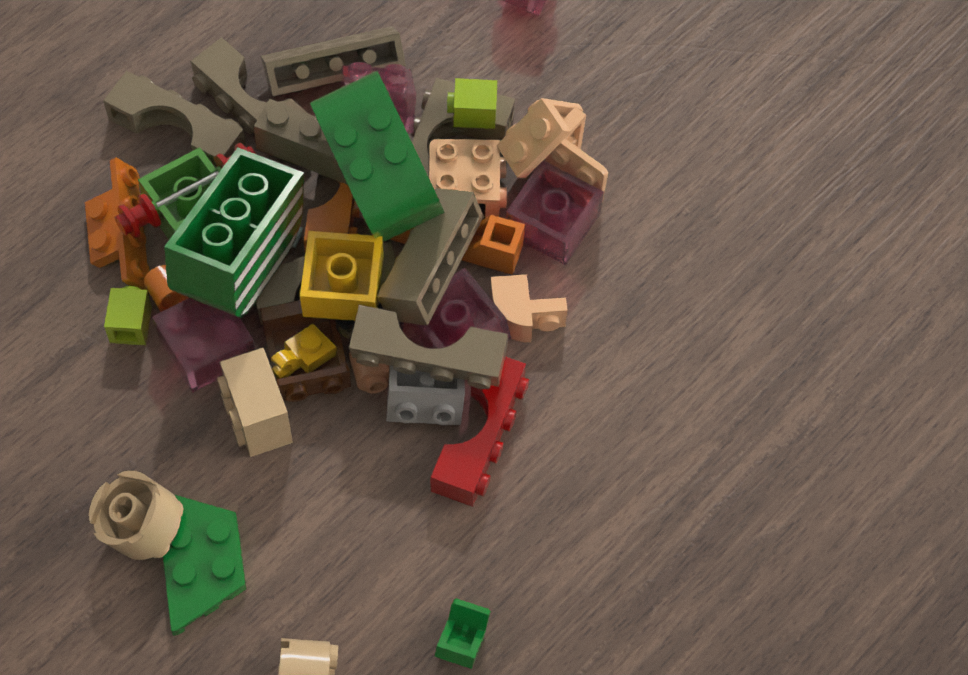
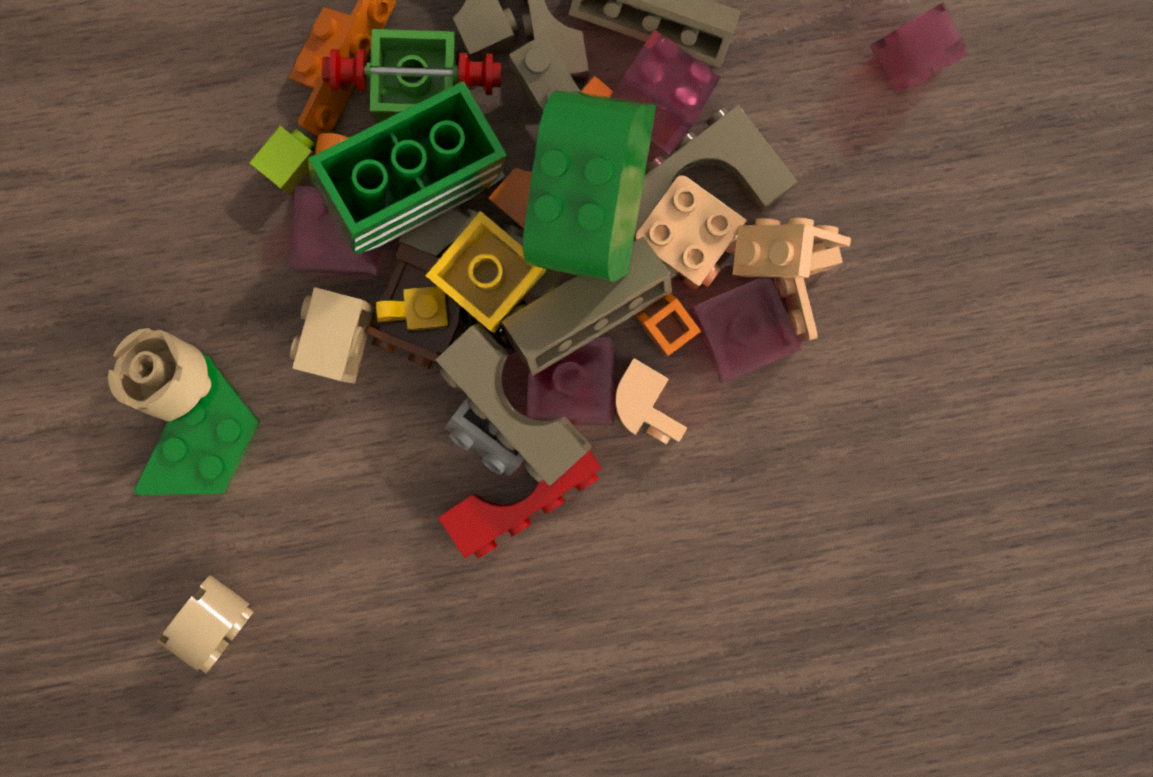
camera: 40 degrees right, 25 degrees up
(463, 633) = (369, 672): green bracket -> none
(473, 103) = (747, 165): lime brick -> none

